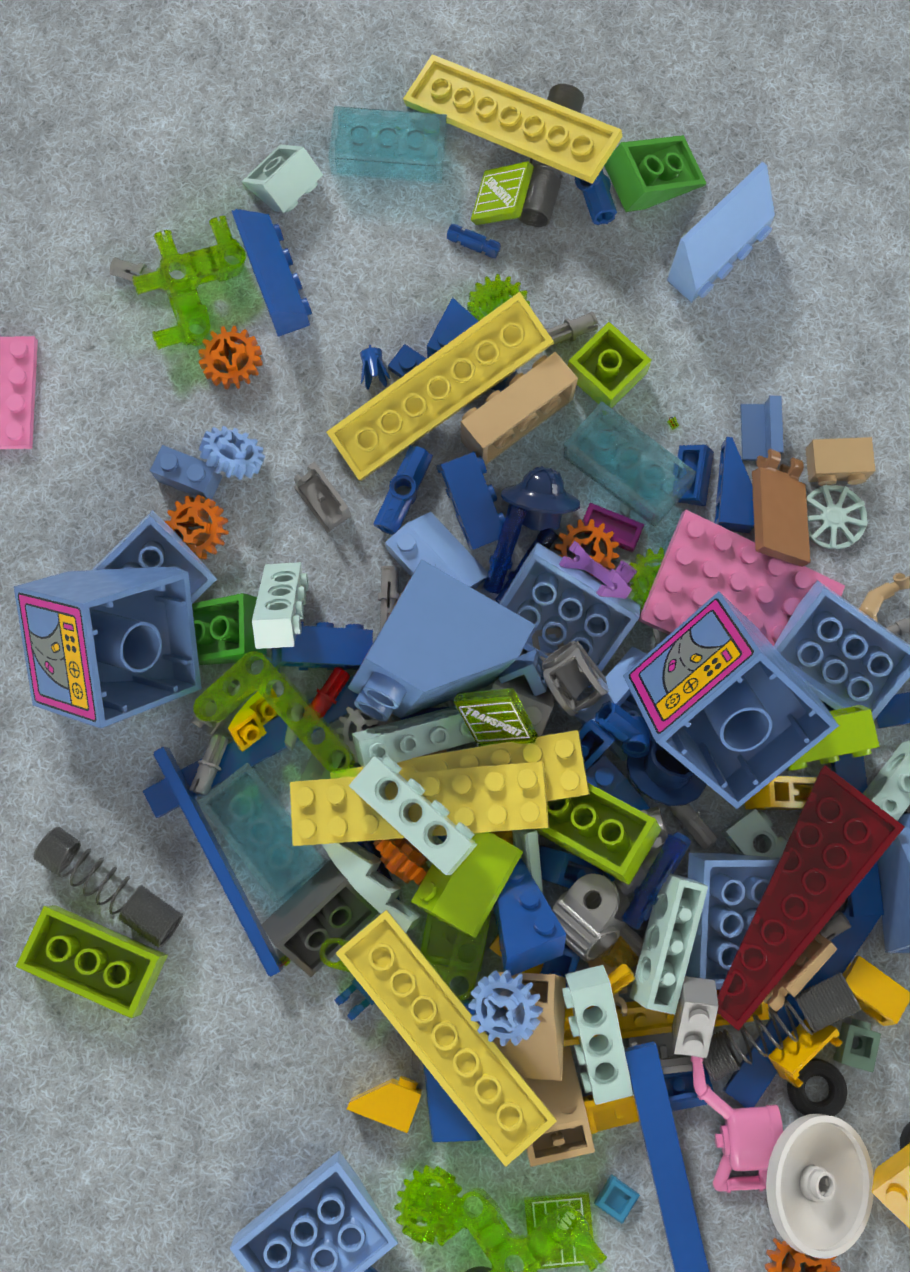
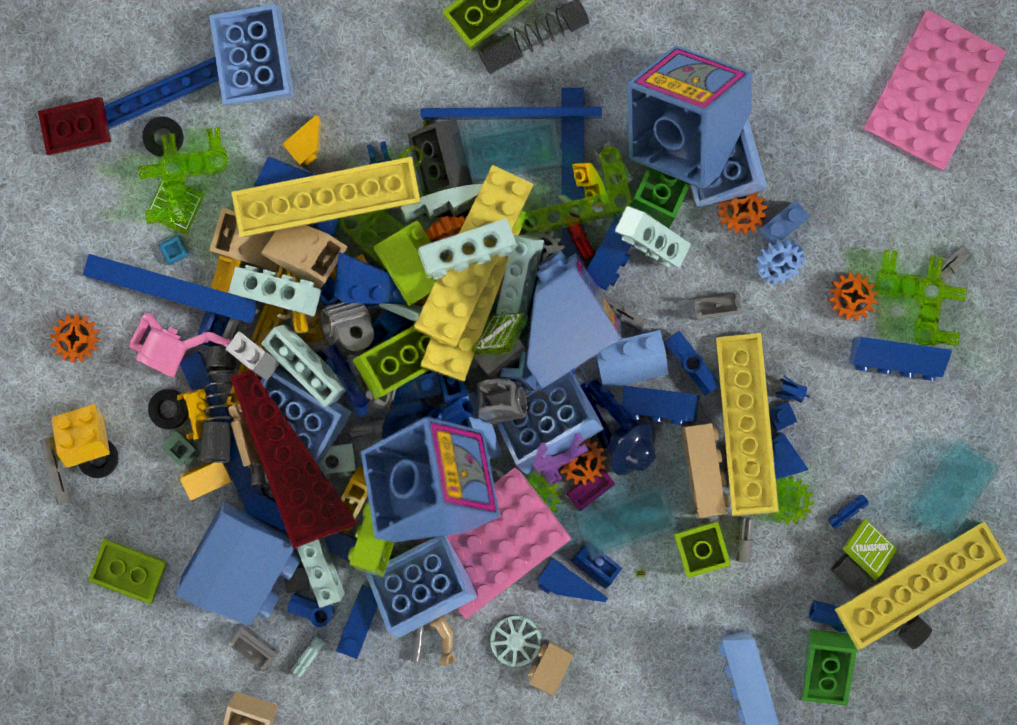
camera: 115 degrees right, 10 degrees up
(209, 765) = (575, 138): light grey axle -> none
(284, 177) = (969, 403): light aqua slope -> none
(429, 1205) = (233, 135): clear neon green gear -> none
(505, 991) = (321, 241): light blue gear -> none
(761, 428) = (601, 628): medium blue panel -> none
(780, 510) = (538, 604): medium nougat tile -> none
(820, 1185) = (116, 375): white dish -> none

